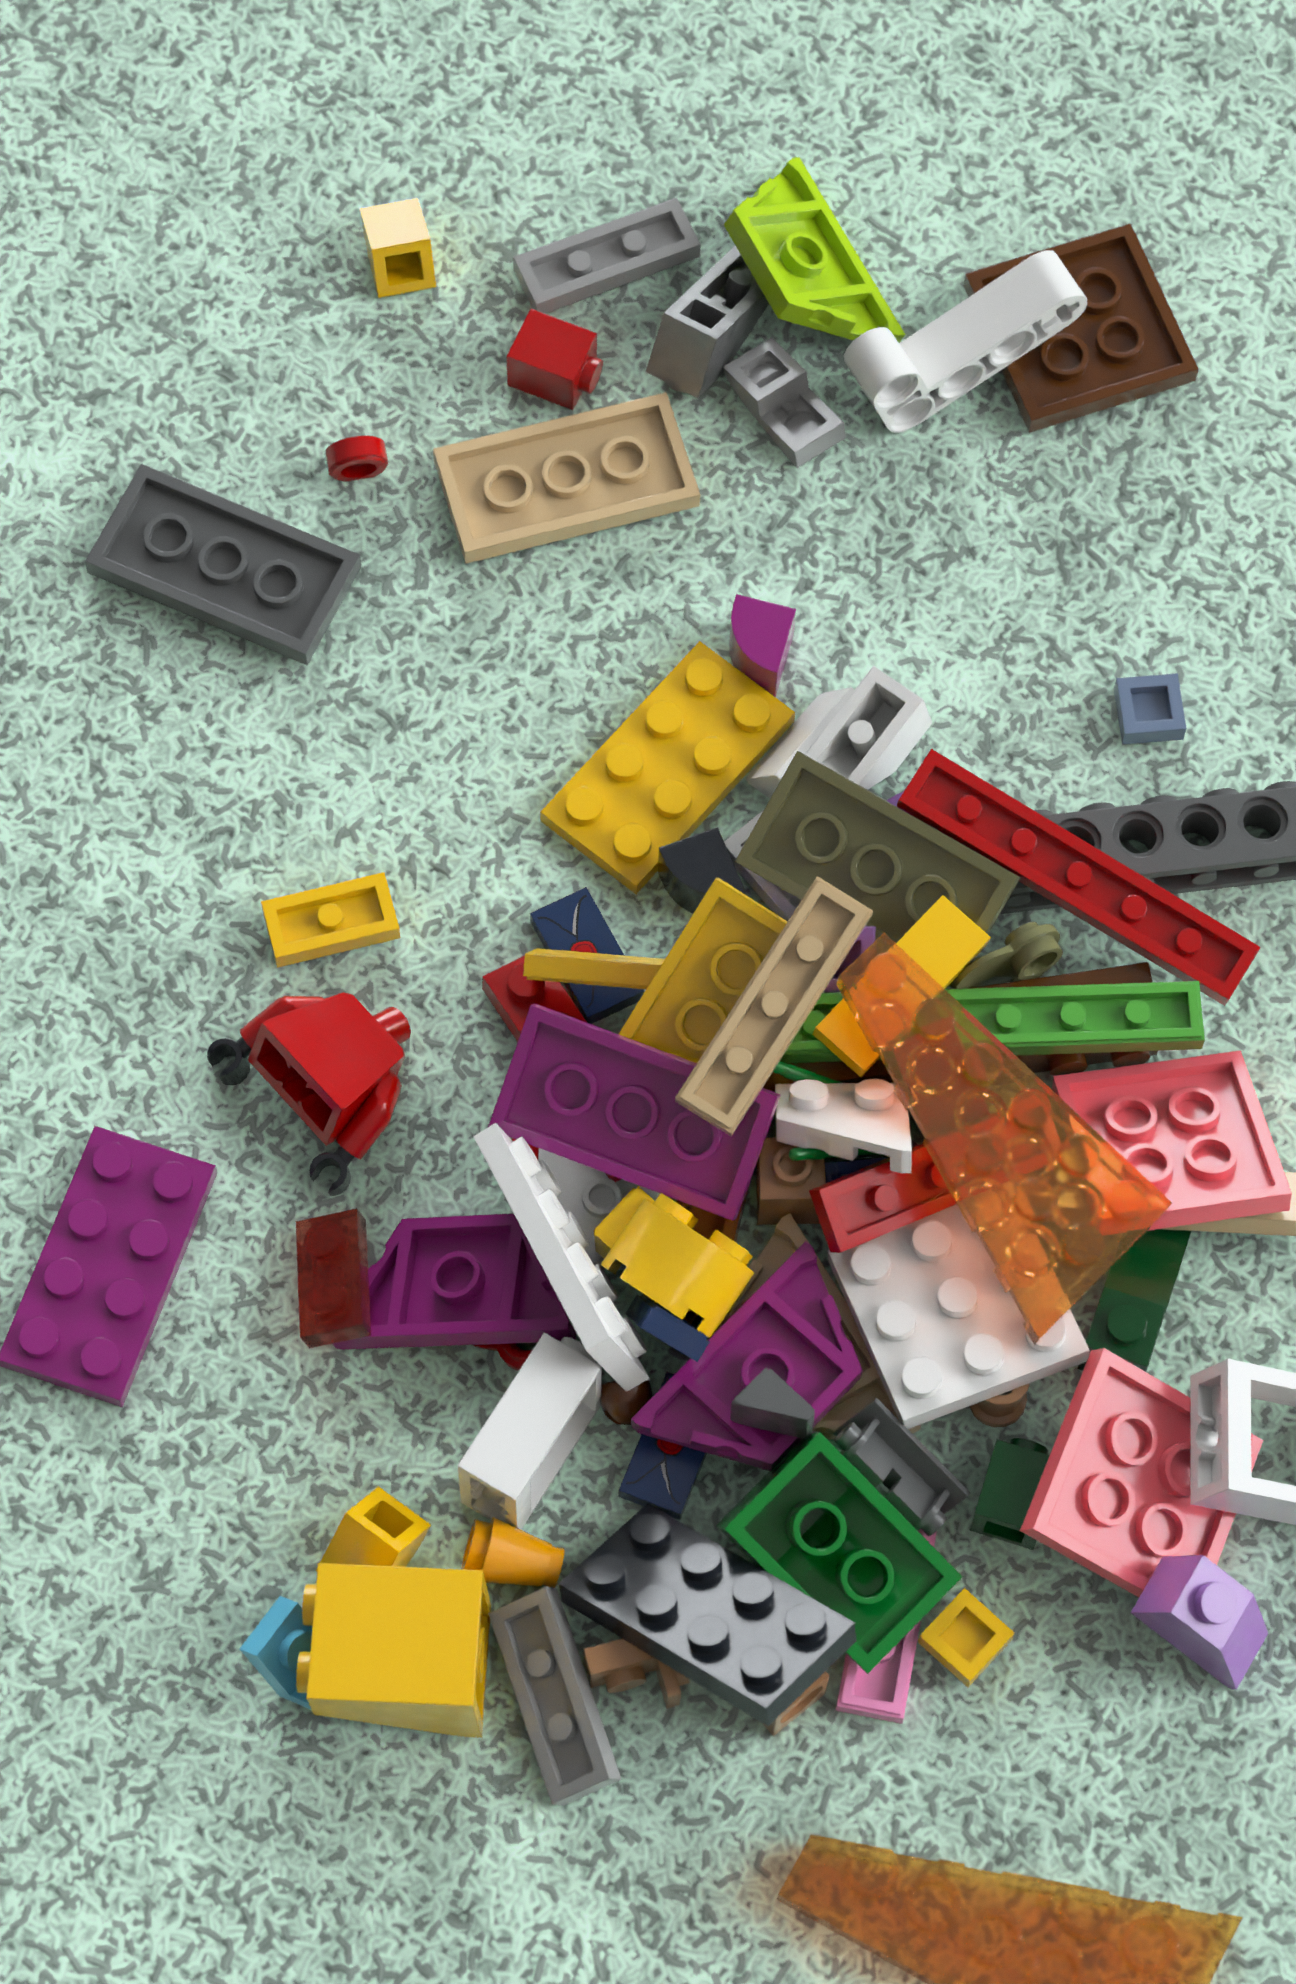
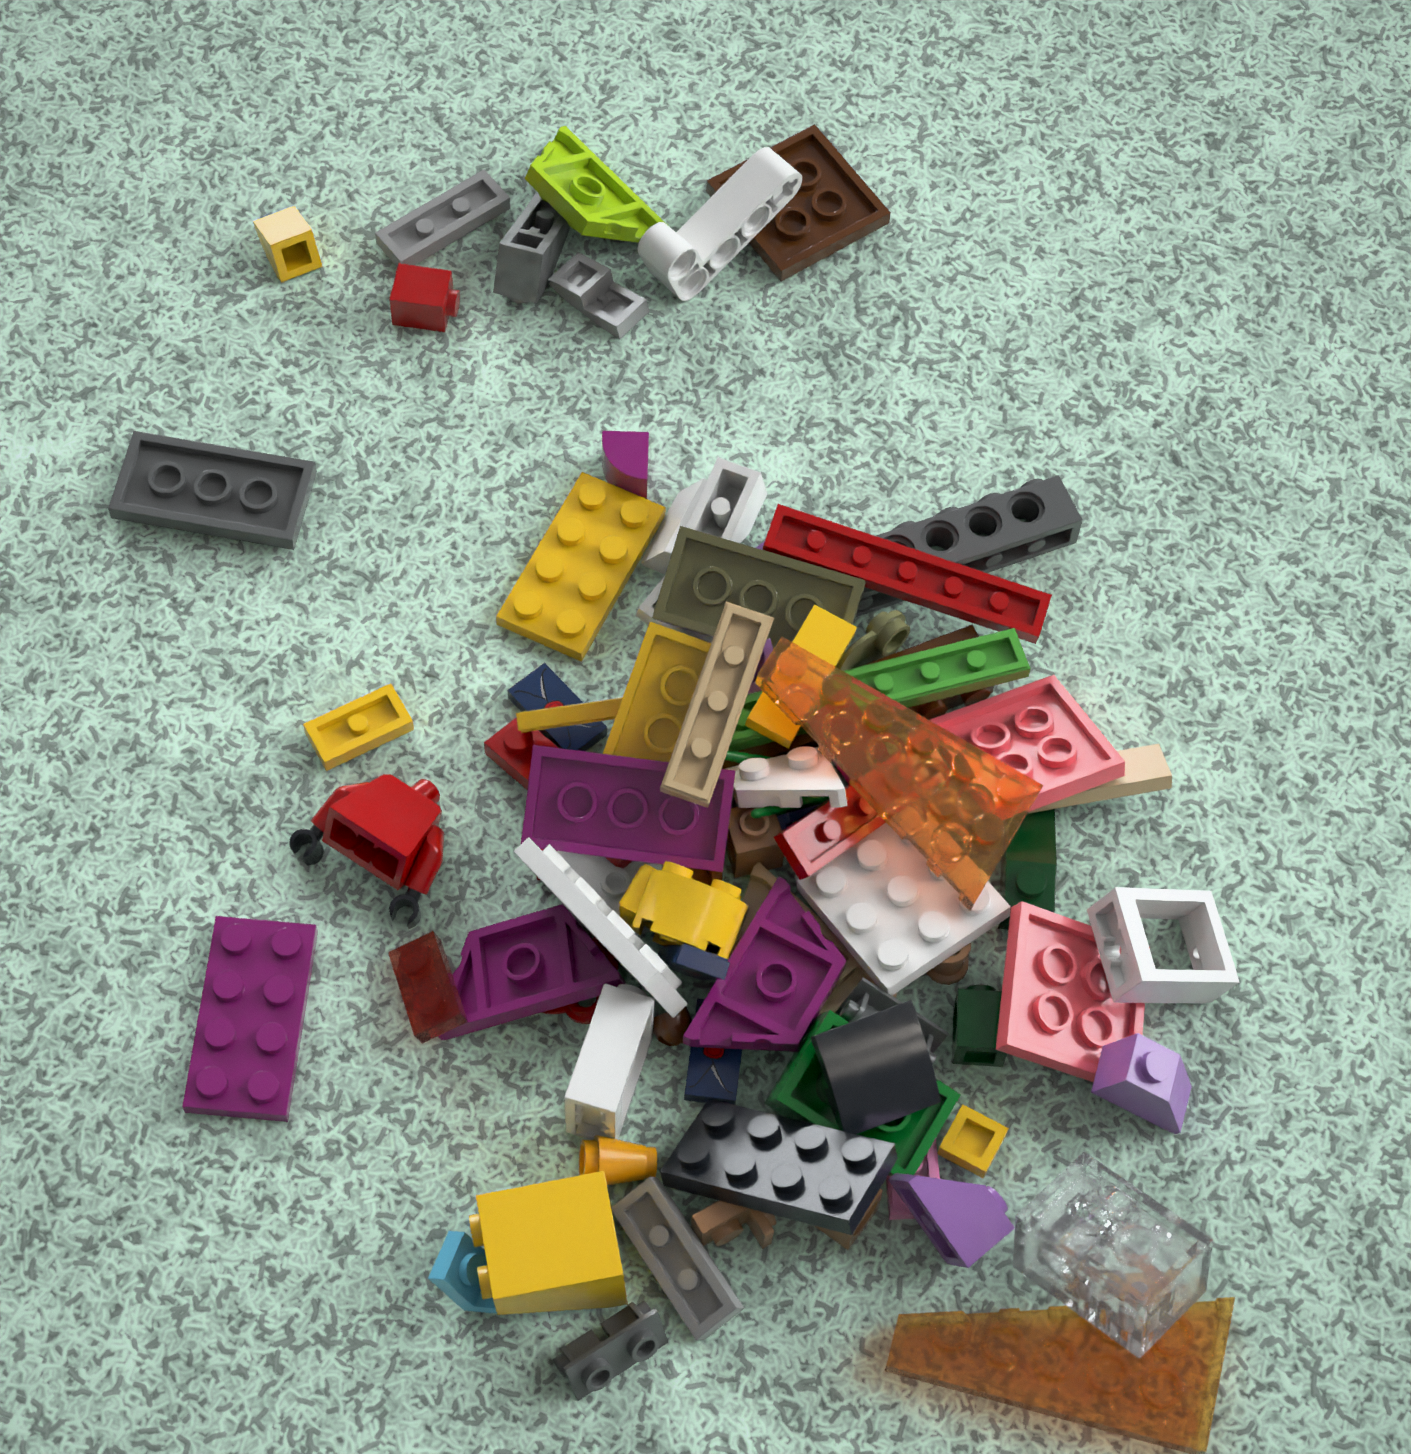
camera: 15 degrees left, 5 degrees down
(356, 458) = (294, 395): red tile -> none
(377, 1533) = (508, 1166): yellow brick -> none
(475, 1782) = (592, 1364): none -> dark grey hinge
(566, 477) = (453, 378): tan plate -> none
(693, 864) = (621, 632): black brick -> none
(773, 1406) = (790, 1000): dark grey slope -> none
(859, 1521) = (877, 1069): none -> black slope
(916, 1727) = (955, 1215): none -> medium lavender slope
(1094, 1826) = (1111, 1253): none -> clear piece
(1149, 708) = (921, 451): sand blue plate -> none

